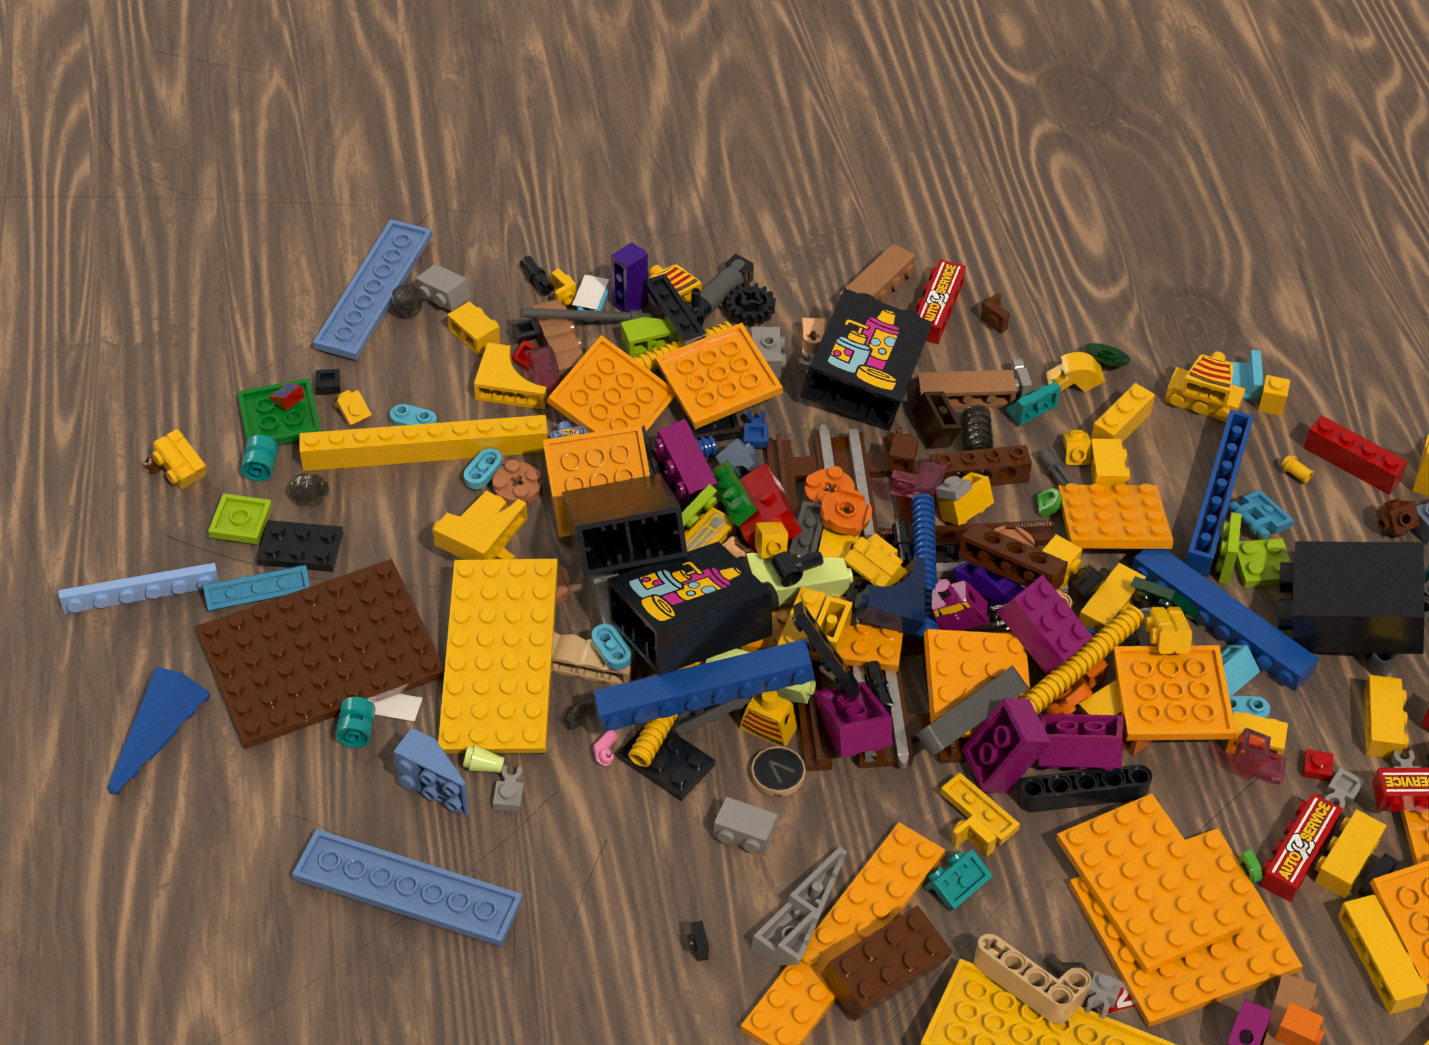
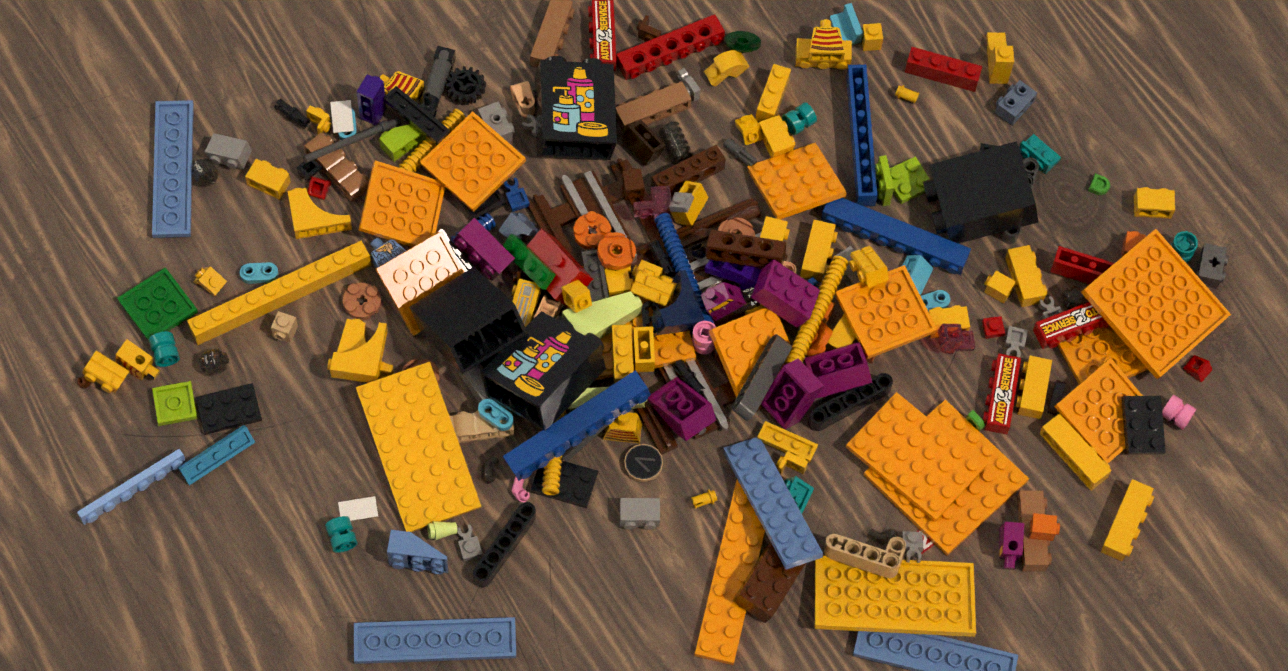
camera: 25 degrees left, 15 degrees up
(165, 707) = (201, 572): blue wedge -> none
(218, 457) = (136, 361): none -> yellow torso
(288, 395) = (158, 289): red slope -> none
(315, 647) = (285, 488): reddish brown plate -> none
(328, 381) = (179, 263): black plate -> none
(410, 479) = (284, 327): none -> tan brick
(479, 471) = (332, 299): medium azure plate -> none
(544, 367) = (338, 196): clear pink brick -> none
(545, 815) = (503, 553): none -> black beam
(698, 941) = (643, 606): black plate -> none
(703, 501) = (510, 280): lime plate -> none
(790, 567) = (600, 314): black axle -> none
(791, 928) = (700, 577): light grey wedge -> none
(830, 658) = (654, 374): black plate -> none
(834, 839) = (704, 499): none -> yellow pin
(913, 645) = (701, 338): none -> bright pink wheel
(926, 871) = (772, 503): none -> medium blue plate
(1014, 335) = (709, 26): none -> red brick
(1035, 404) = (705, 103): teal bracket -> none
(1049, 501) = (746, 182): bright green tile -> none
(1088, 581) = (797, 241): black axle -> none
(1146, 452) = (800, 118): none -> teal wheel
(1163, 597) = (854, 239): dark green plate -> none
(1267, 512) = (897, 138): dark azure plate -> none
(1343, 718) = (999, 286): none -> yellow brick
(1397, 517) = (988, 113): reddish brown brick -> none

